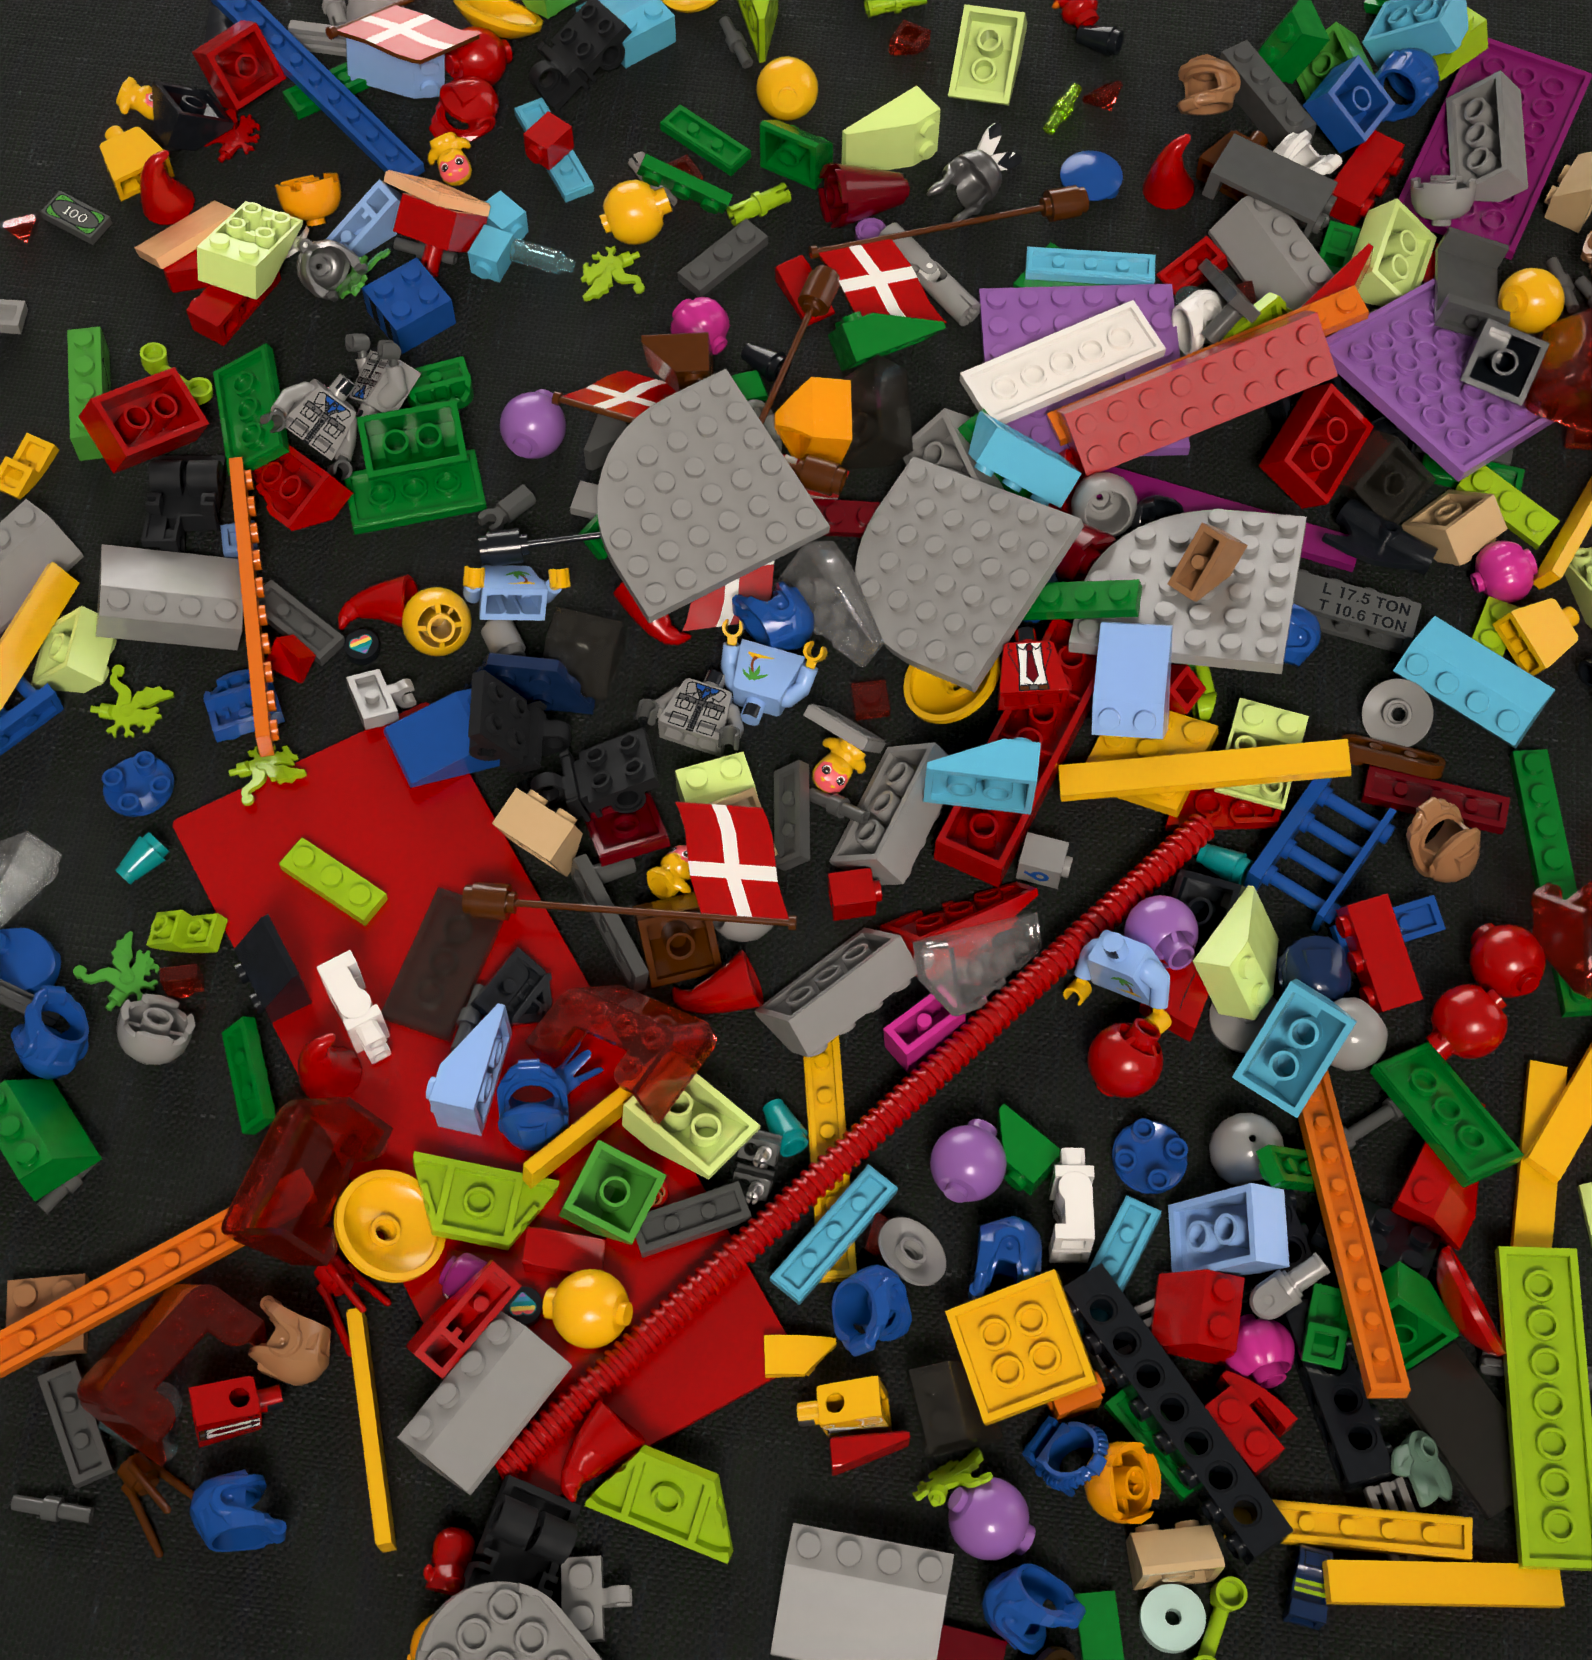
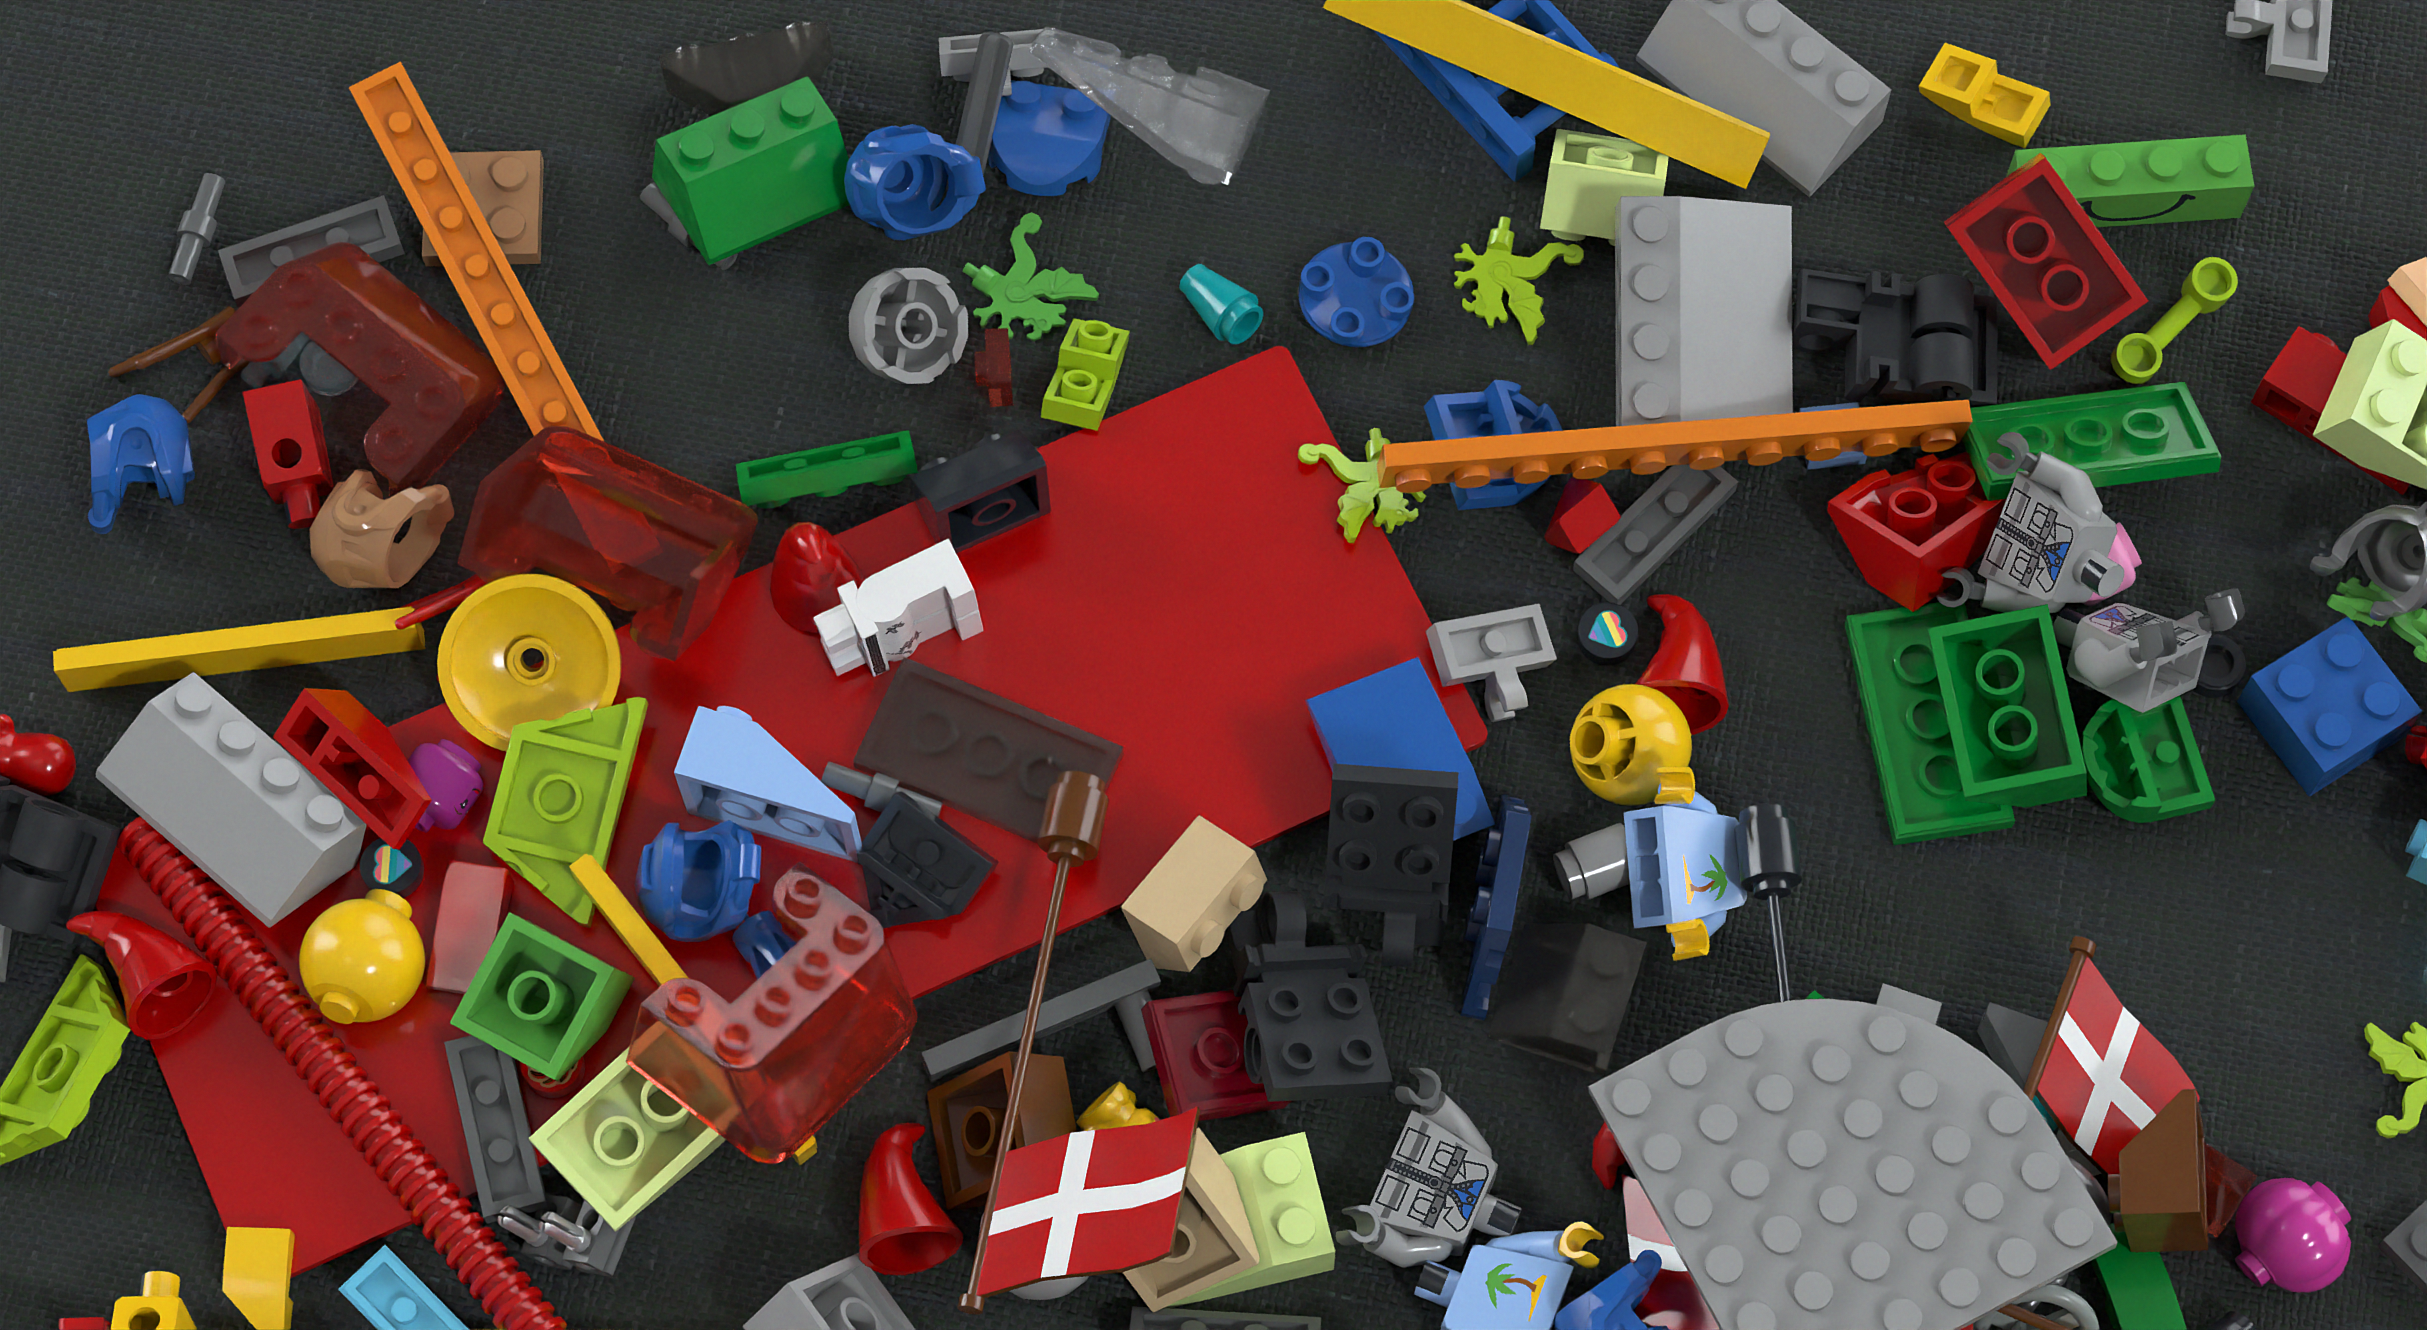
camera: 95 degrees right, 5 degrees up
(333, 881) = (1150, 587): lime plate -> none
(508, 508) = (1883, 877): dark grey bar -> none
(532, 424) = (2050, 905): medium lavender brick -> none
(783, 1122) = (646, 1290): teal cone -> none

